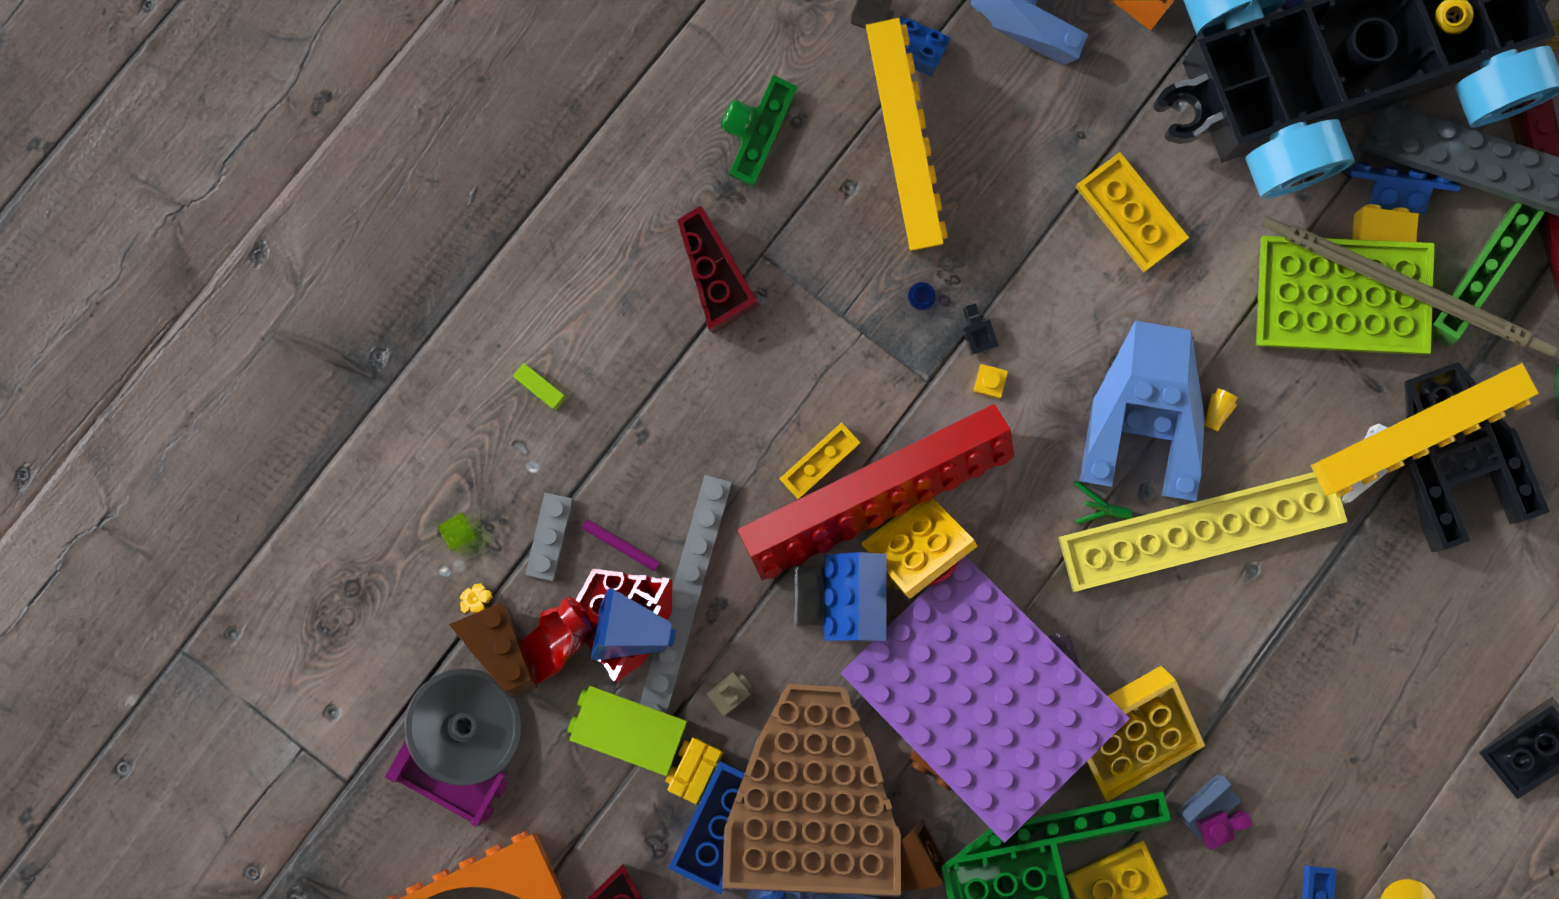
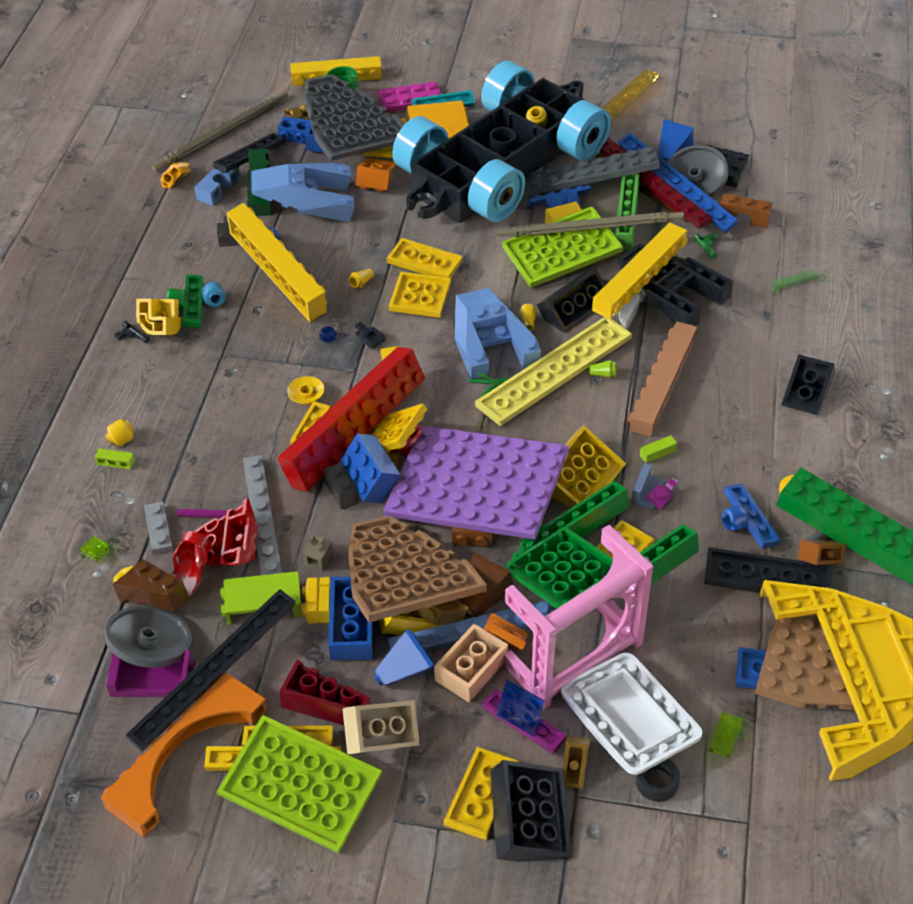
camera: 25 degrees left, 35 degrees down
(517, 824) = (210, 670): none -> black plate
(563, 346) = (120, 432): none -> yellow head
(628, 629) = (233, 527): blue slope -> none
(654, 147) = (130, 331): none -> black hose
(698, 149) = (158, 316): none -> yellow brick
(718, 279) = (198, 363): dark red wedge -> none
(796, 134) = (213, 294): none -> dark azure head
(845, 380) = (305, 390): none -> yellow dish
(1019, 205) = (360, 278): none -> yellow cone
(1089, 282) = (420, 294): none -> yellow plate
(1262, 746) = (658, 449): none -> lime piece
(1270, 566) = (605, 369): none -> lime cone
(1304, 411) = (572, 301): none -> black slope
(1343, 626) = (663, 379): none -> nougat brick

